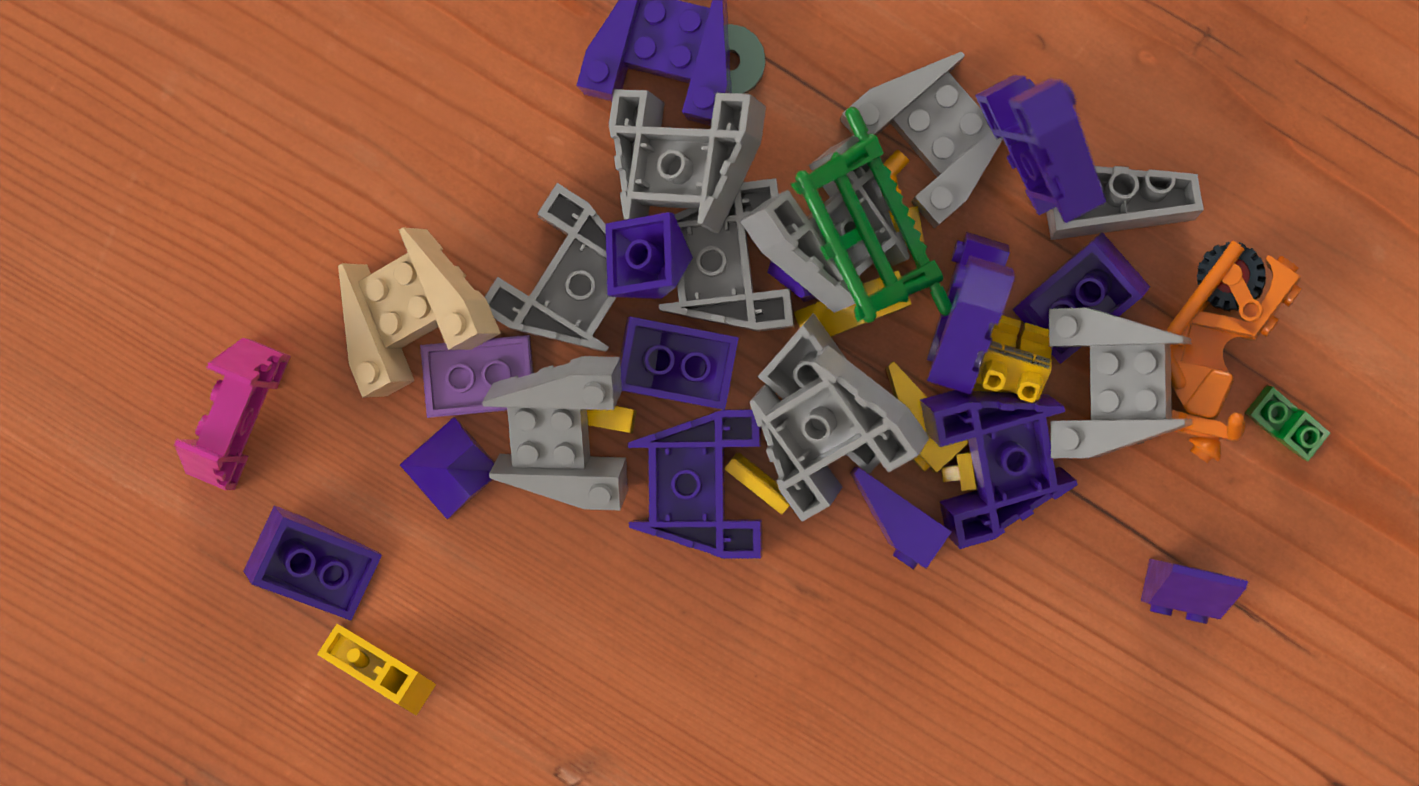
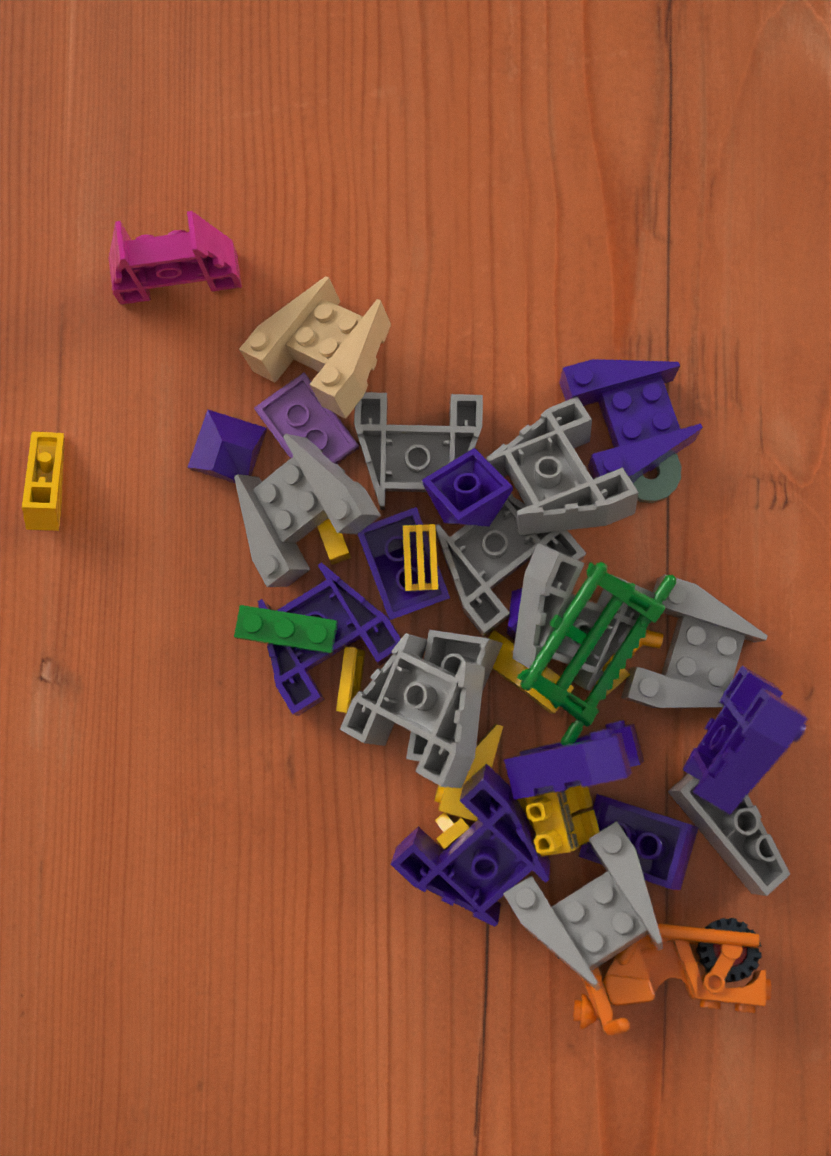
camera: 55 degrees right, 5 degrees down
(311, 564) = (95, 388): dark purple slope -> none
(674, 516) = (285, 629): none -> green plate
(709, 357) = (419, 529): none -> yellow tile
(903, 525) = (381, 817): dark purple slope -> none
(1190, 590) = (466, 1068): dark purple slope -> none
(1287, 423) = (641, 1064): green slope -> none

